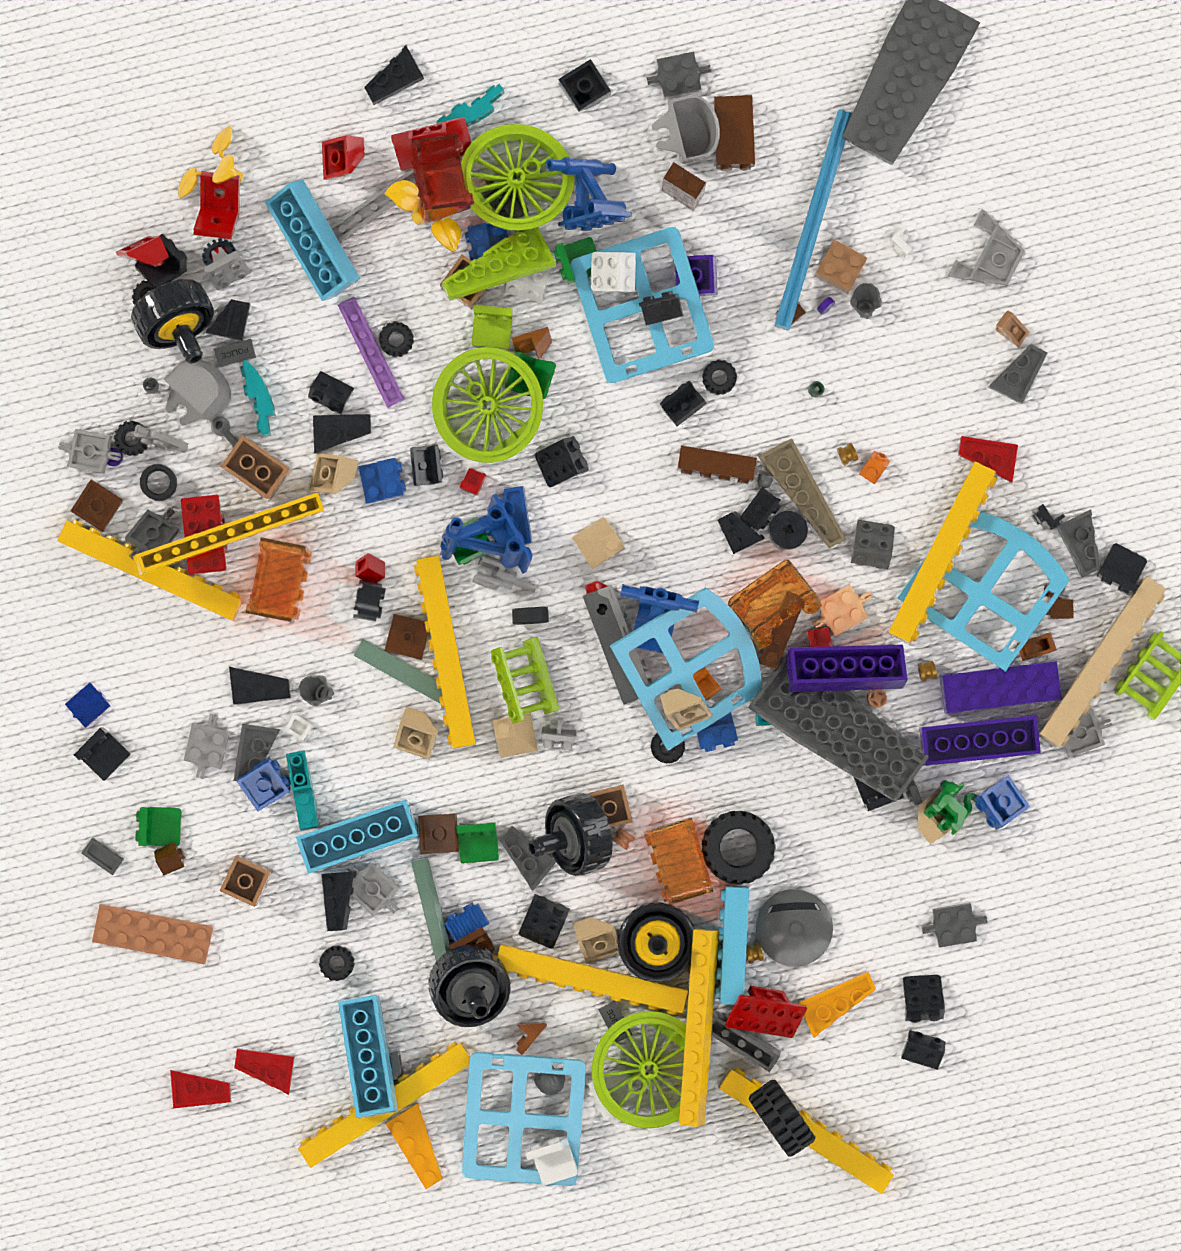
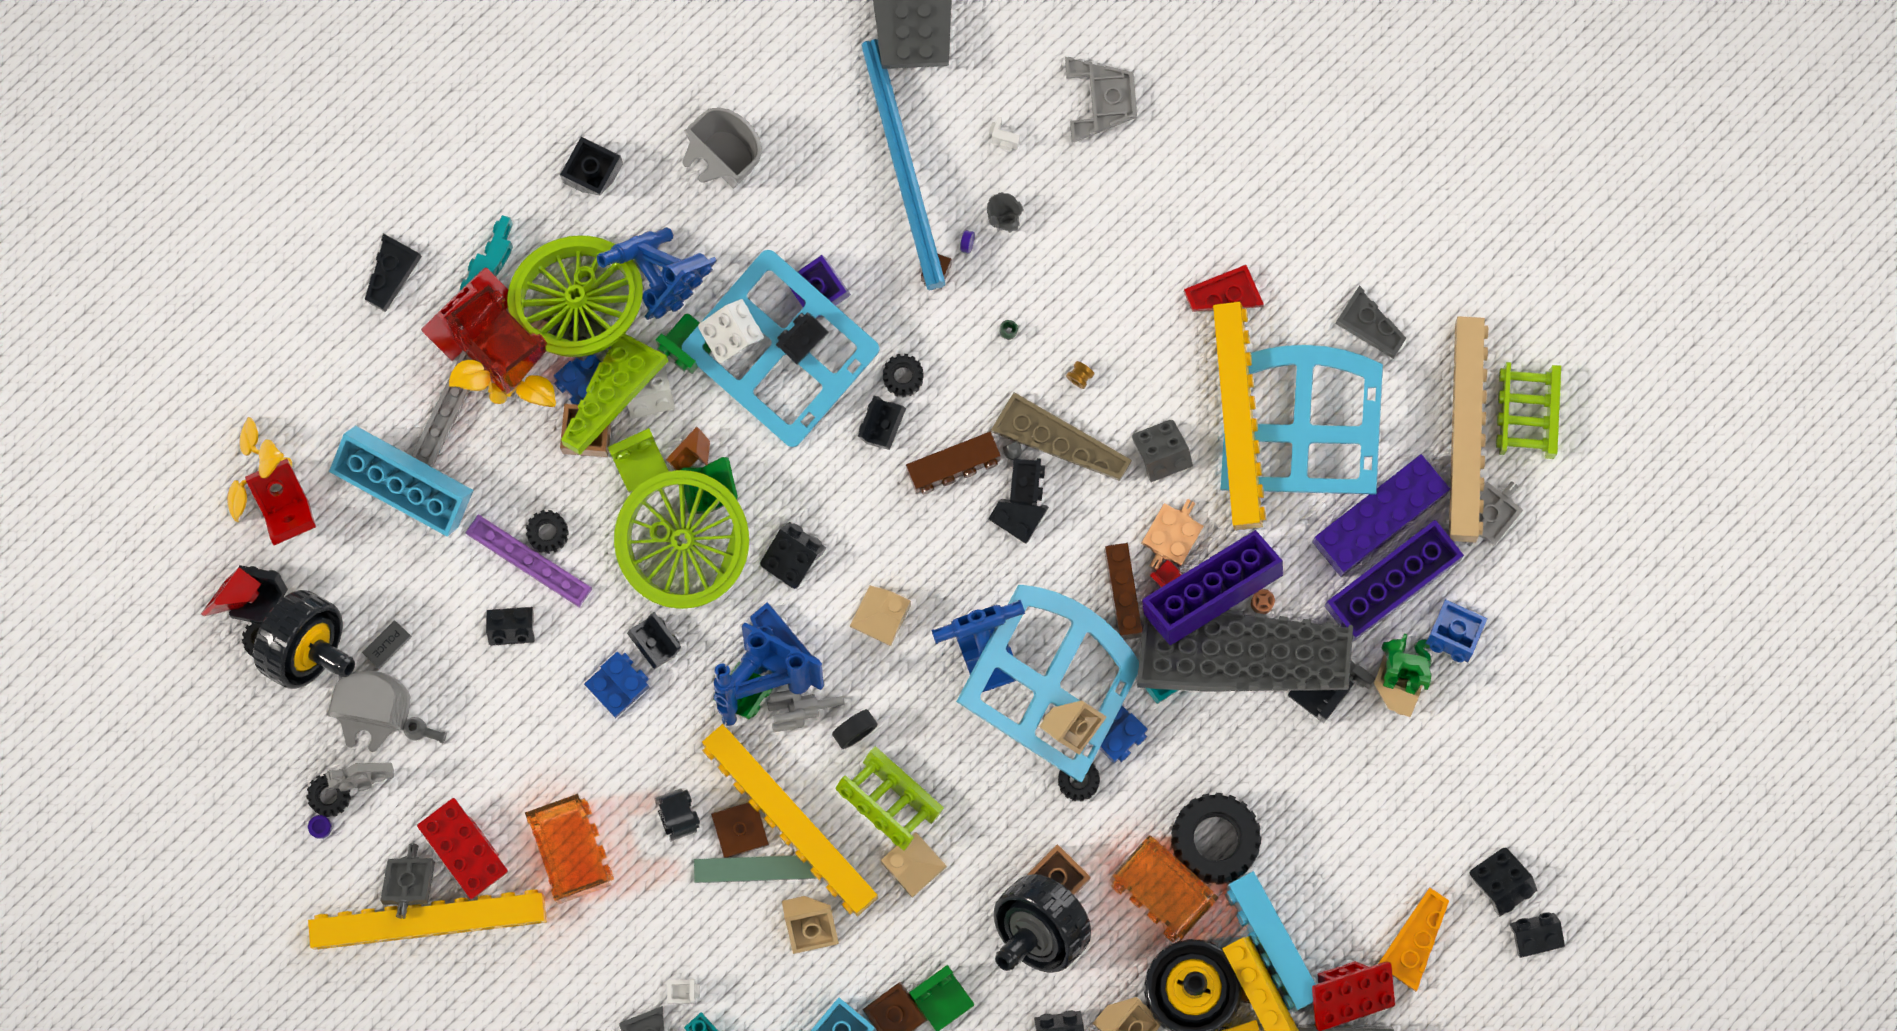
camera: 30 degrees left, 10 degrees down
(89, 451) = (291, 834): light grey plate -> none
(97, 505) = (331, 887): reddish brown plate -> none
(145, 475) = (368, 814): black tyre -> none
(150, 382) = (315, 726): dark grey hinge -> none
(223, 263) = (322, 559): light grey plate -> none
(228, 533) = (487, 829): yellow brick -> none
(232, 321) = (364, 613): black wing -> none
(256, 468) = (477, 747): medium nougat brick -> none
(257, 390) = (434, 668): teal slope -> none
(257, 687) = (612, 976): black wing -> none
(315, 690) = (675, 941): dark grey hair -> none
(332, 473) = (561, 705): tan slope -> none
(338, 429) = (540, 658): black wing -> none
(341, 155) = (381, 380): red slope -> none
(370, 568) = (658, 781): red panel -> none
(473, 481) = (713, 629): red panel -> none
(531, 867) = (1009, 987): dark grey wing -> none
(558, 732) = (968, 832): light grey hips -> none
(610, 629) = (943, 693): dark grey piece -> none
(623, 838) = (1091, 902): nougat wheel -> none
(678, 74) = (679, 103): dark grey plate -> none
(683, 186) = (751, 205): reddish brown brick -> none
(706, 683) = (1079, 689): orange bracket -> none
(736, 132) = (778, 132): reddish brown brick -> none
(754, 953) = (1301, 939): pearl gold wheel -> none
(773, 600) = (1095, 563): clear orange windscreen -> none
(794, 927) = (1325, 889): dark grey dish -> none
(798, 526) = (1069, 473): black brick -> none
(840, 266) = (958, 194): medium nougat brick -> none
(874, 467) = (1116, 372): orange bracket -> none
(927, 671) = (1296, 543): pearl gold wheel -> none
(954, 925) = (1487, 786): dark grey plate -> none
(1012, 329) = (1168, 155): medium nougat slope -> none
(1020, 374) = (1205, 196): dark grey wing -> none
(1038, 646) = (1393, 451): dark orange slope -> none
(1044, 518) = (1319, 320): black bracket -> none
(1061, 608) = (1392, 400): reddish brown brick -> none
(1122, 568) = (1428, 325): black bracket -> none

